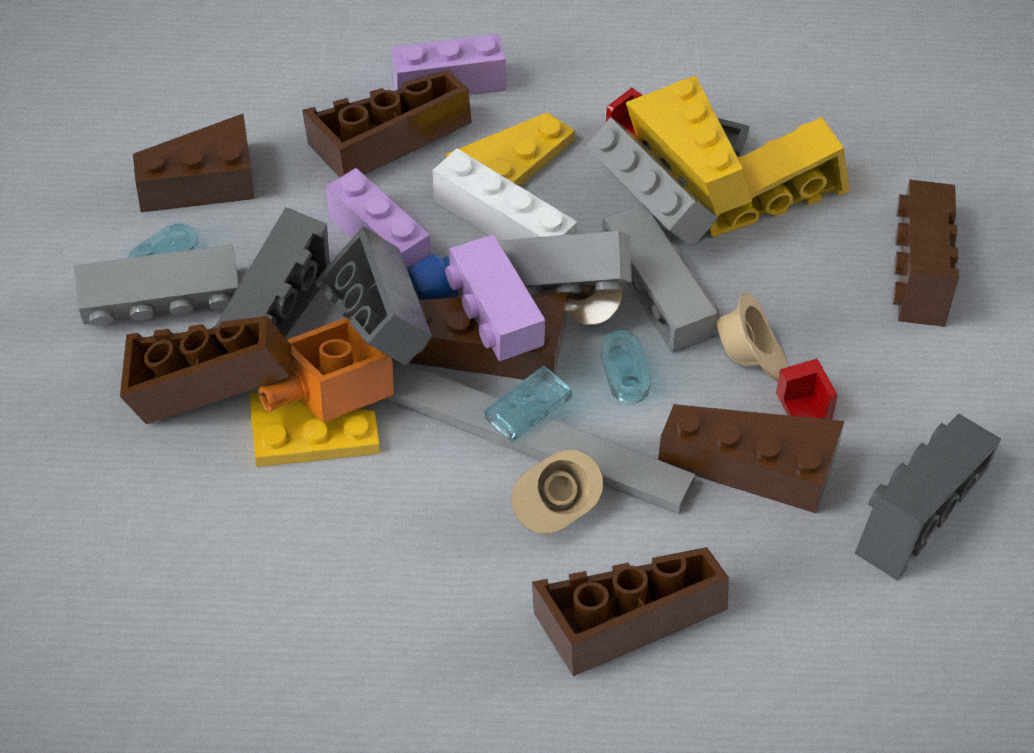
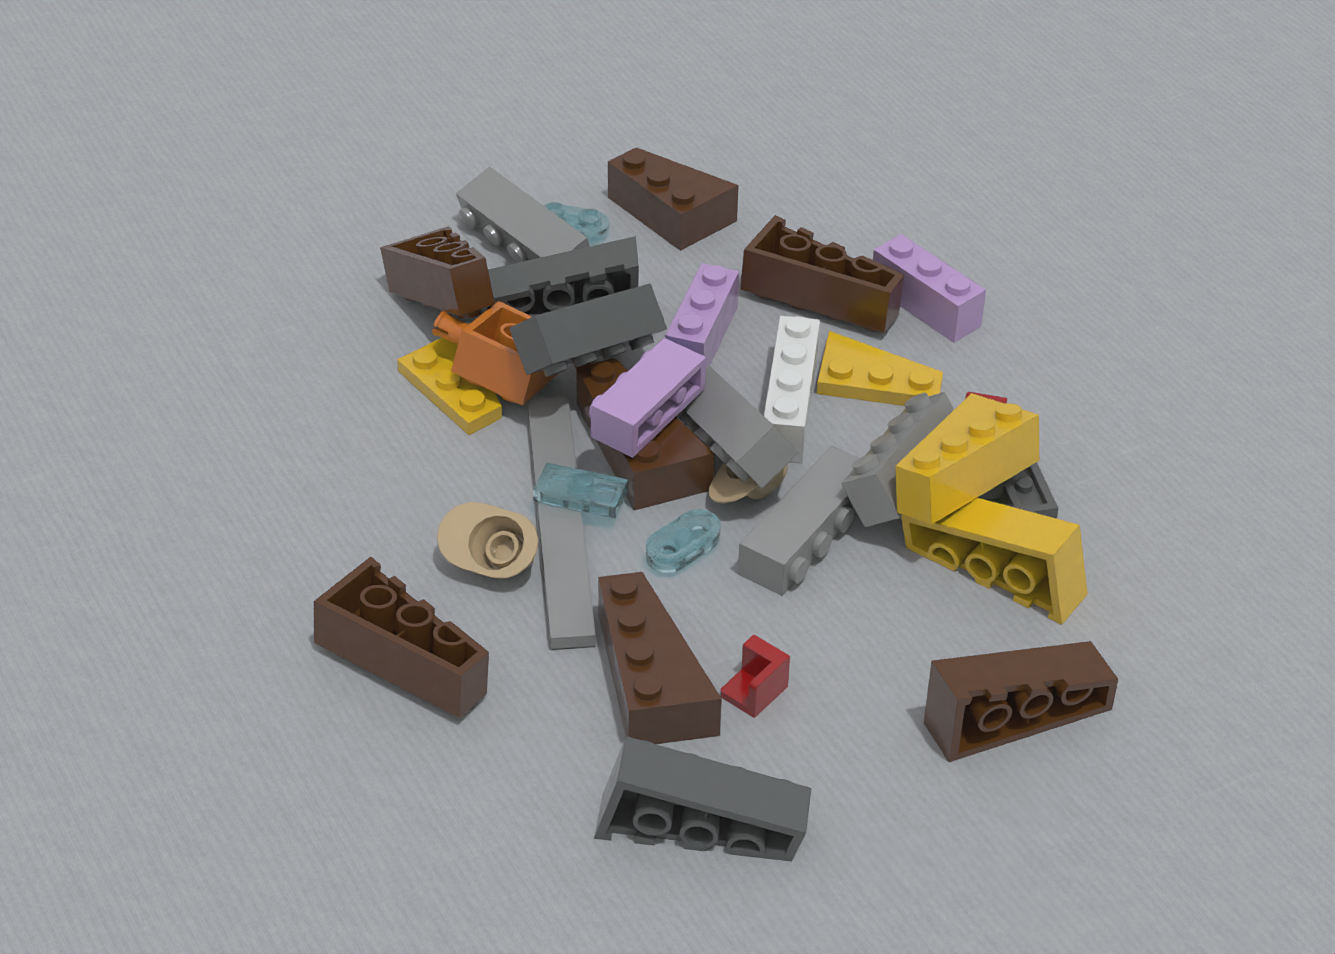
camera: 60 degrees right, 10 degrees down
(749, 337) = (788, 606): tan piece -> none

